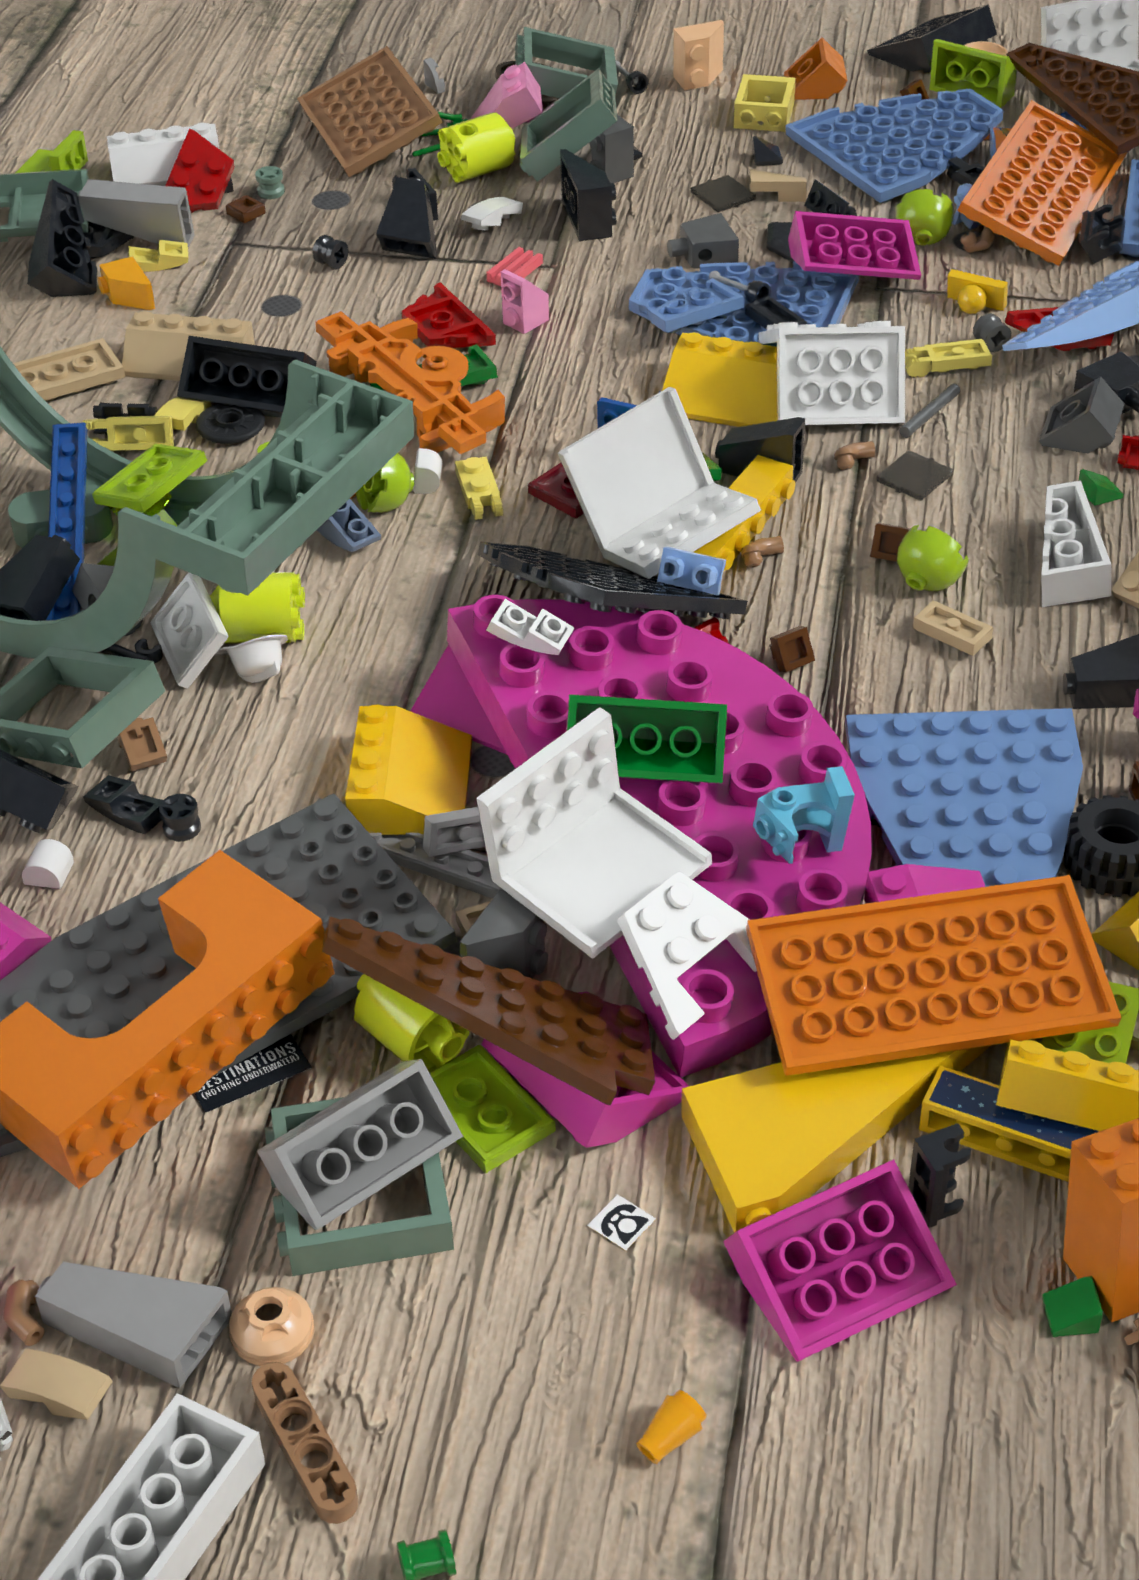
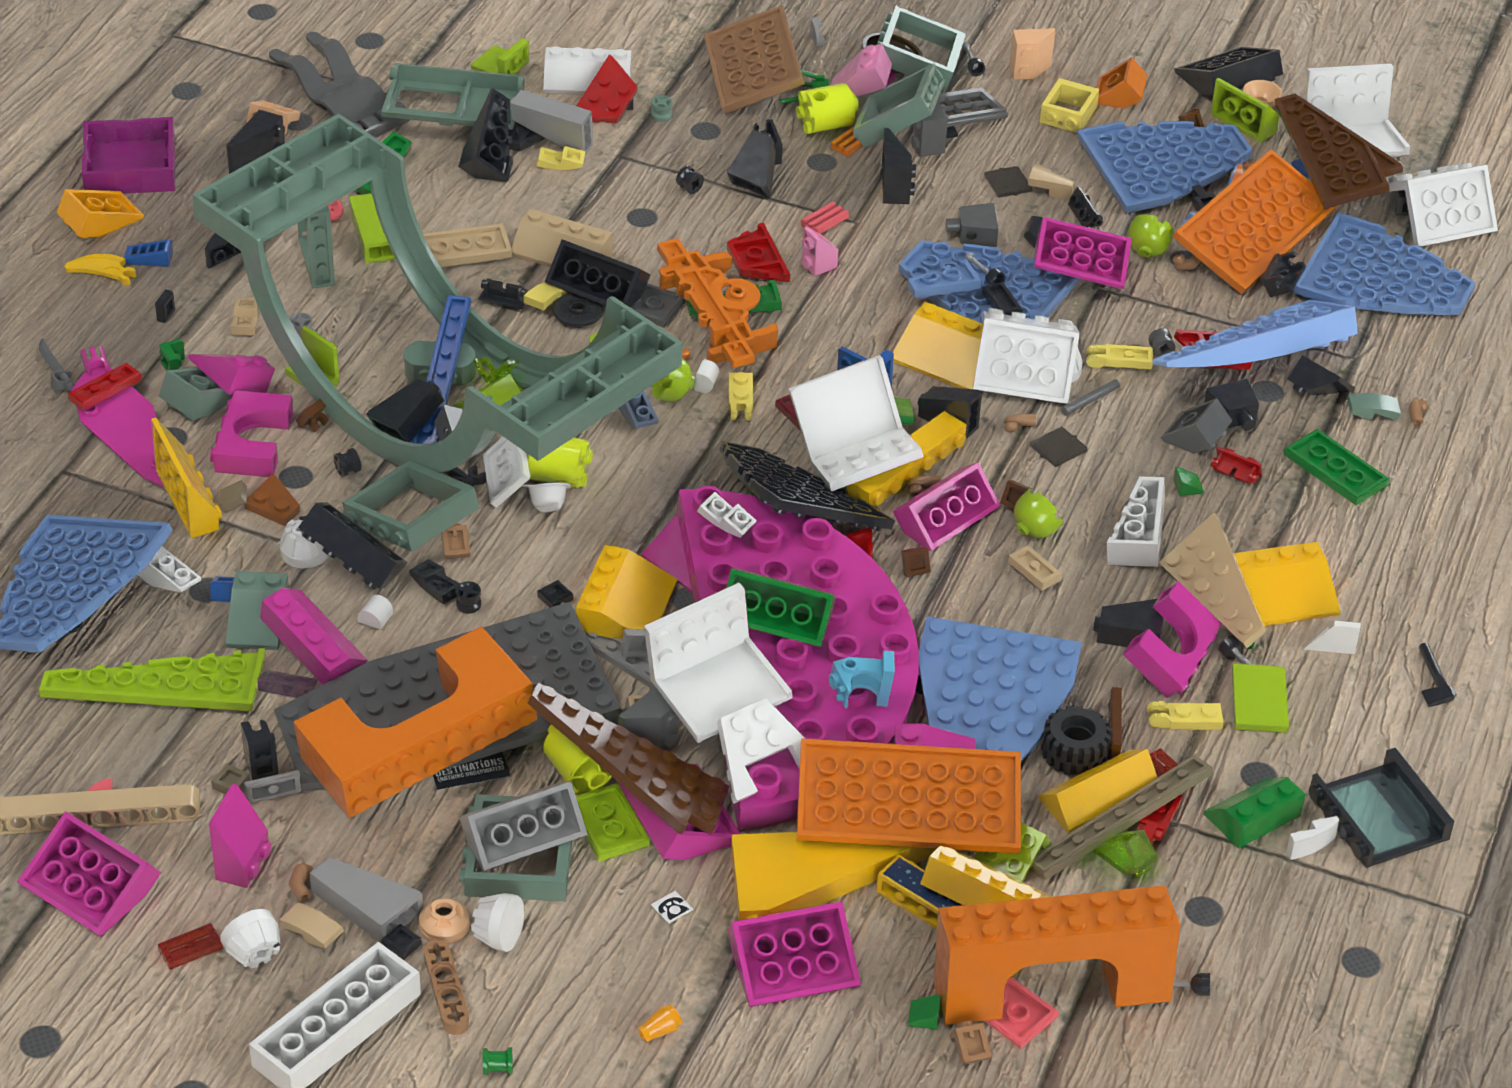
camera: 10 degrees right, 0 degrees up
(126, 284) = (530, 179): light orange slope -> none
(133, 432) = (505, 305): light yellow hinge -> none
(149, 477) = (506, 347): lime tile -> none
(210, 1379) = (401, 941): none -> black tile
(245, 209) = (637, 128): reddish brown tile -> none
(304, 789) = (555, 594): none -> black tile
(361, 1309) = (499, 920): none -> white piece
(491, 212) = (820, 167): white slope -> none
(512, 178) = (845, 140): none -> orange tile
(655, 117) = (995, 112): none -> dark grey piece
(691, 570) = (860, 491): light blue hips -> none
(765, 152) = (1054, 151): black slope -> none
(806, 572) = (947, 507): none -> dark pink slope
(934, 1172) = (870, 916): black hinge -> none
(976, 291) = (1164, 306): yellow tile -> none

